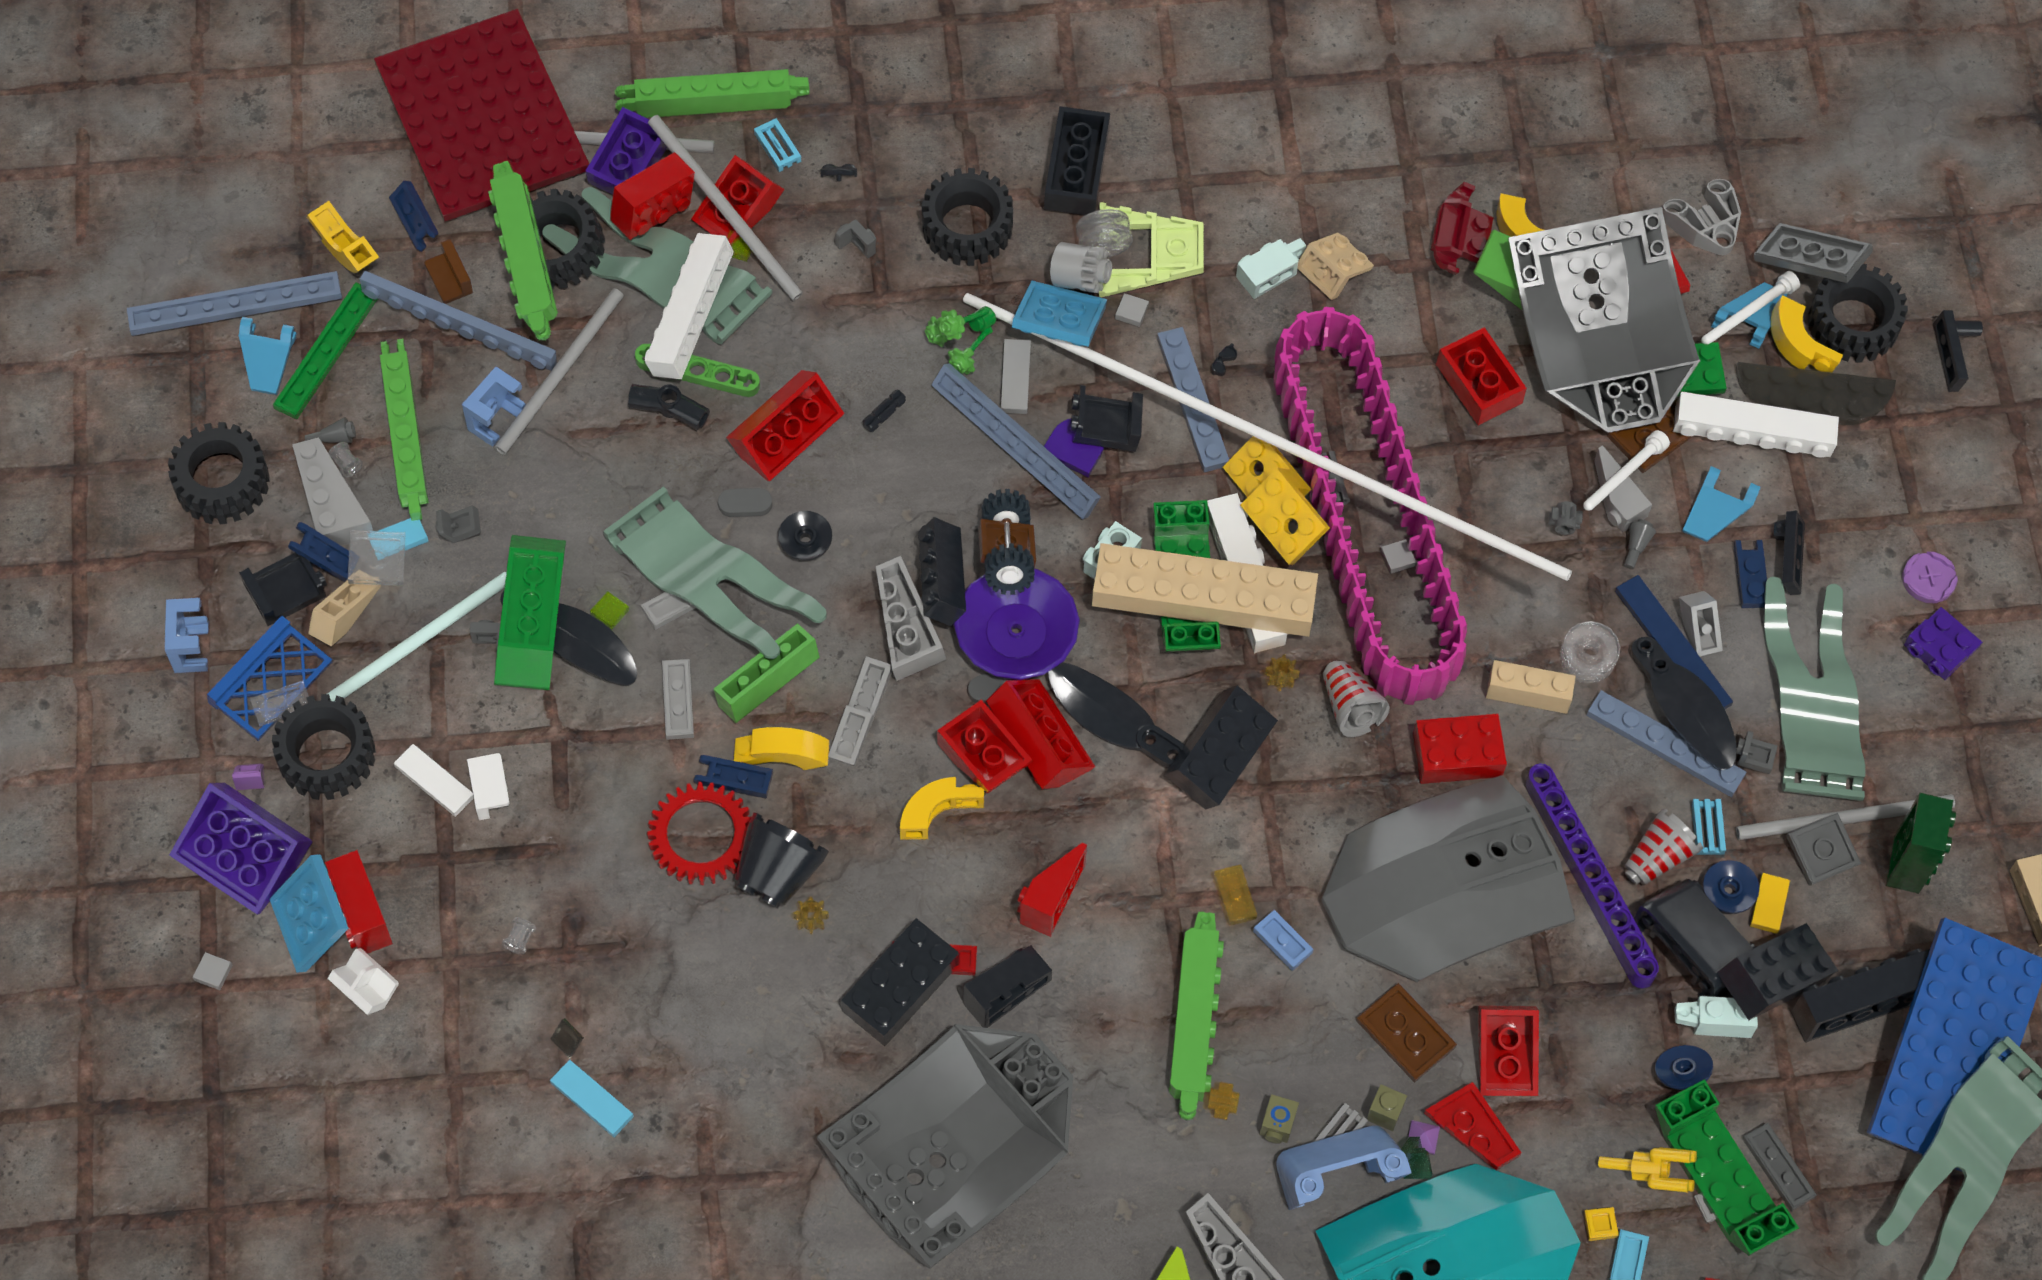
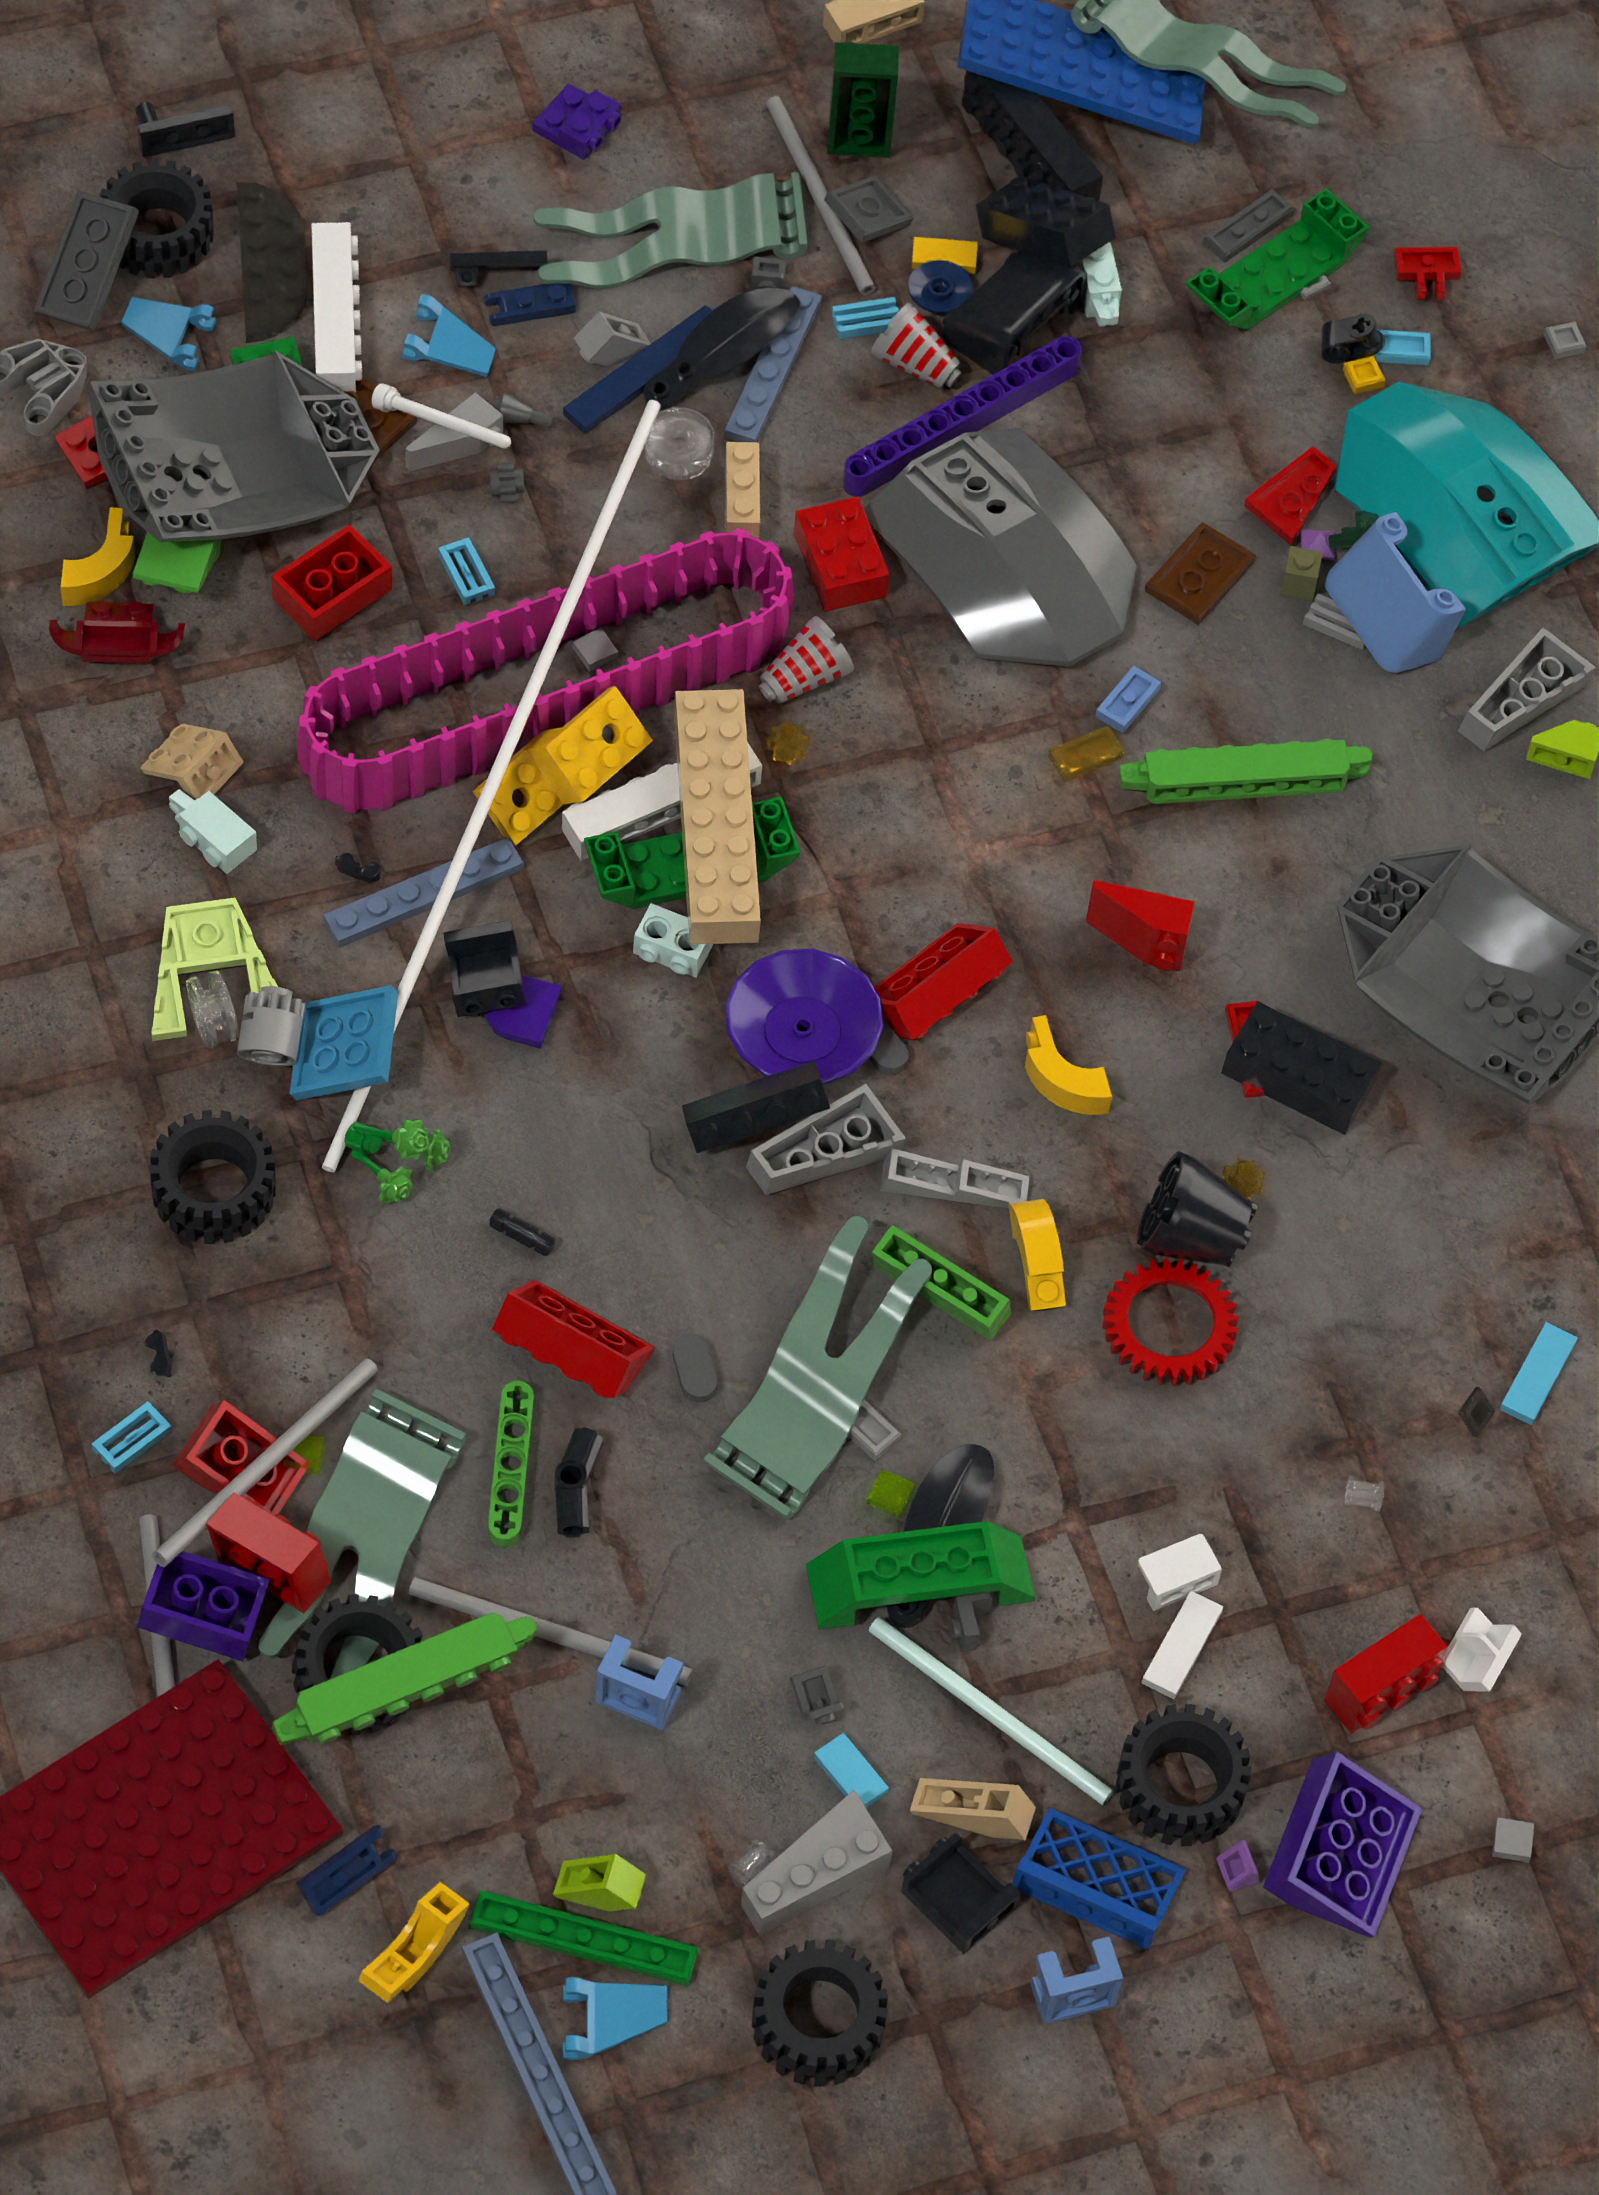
camera: 105 degrees left, 5 degrees down
(271, 705) = (1136, 1843): clear plate -> none
(308, 913) = (1422, 1721): dark azure plate -> none
(322, 552) = (911, 1837): dark blue hinge -> none
(335, 433) = (713, 1884): dark grey cone -> none
(356, 363) = (600, 1883): none -> lime slope
(376, 558) = (896, 1779): clear tile -> none
(404, 429) = (691, 1796): bright green hinge -> none
(449, 274) = (427, 1805): reddish brown panel -> none
(457, 320) = (509, 1780): sand blue plate -> none
(678, 699) = (992, 1389): light grey tile -> none
(689, 306) = (429, 1474): white brick -> none
(711, 93) = (70, 1527): bright green hinge -> none
(736, 776) = (1084, 1297): dark blue hinge -> none
(802, 525) = (735, 1270): black dish -> none
(862, 238) = (265, 1303): dark grey bracket -> none
(982, 747) = (980, 1027): red slope -> none
(1006, 985) = (1273, 960): black wedge -> none
(1007, 542) = (703, 1036): plate -> none
(1015, 376) = (435, 1092): light grey tile -> none
(1016, 441) = (534, 1072): sand blue plate -> none
(1077, 161) = (99, 1062): black brick -> none
(1110, 713) = (890, 905): black plant -> none
(1132, 310) = (307, 977): light grey tile -> none
(1221, 747) = (911, 781): black brick -> none
(1223, 1100) = (1342, 725): clear yellow gear -> none
(1279, 1119) = (1346, 674): olive brick -> none
(1468, 486) = (475, 591): none -> medium azure tile
(1508, 1050) = (1192, 470): red slope -> none
(1634, 1215) = (1347, 338): none -> black piece
(1654, 1167) = (1294, 321): yellow plant -> none
(1683, 1066) = (1162, 298): dark blue dish -> none
(1786, 284) = (126, 294): white piece -> none
(1795, 342) = (205, 279): yellow arch -> none
(1929, 577) = (492, 139): medium lavender tile -> none

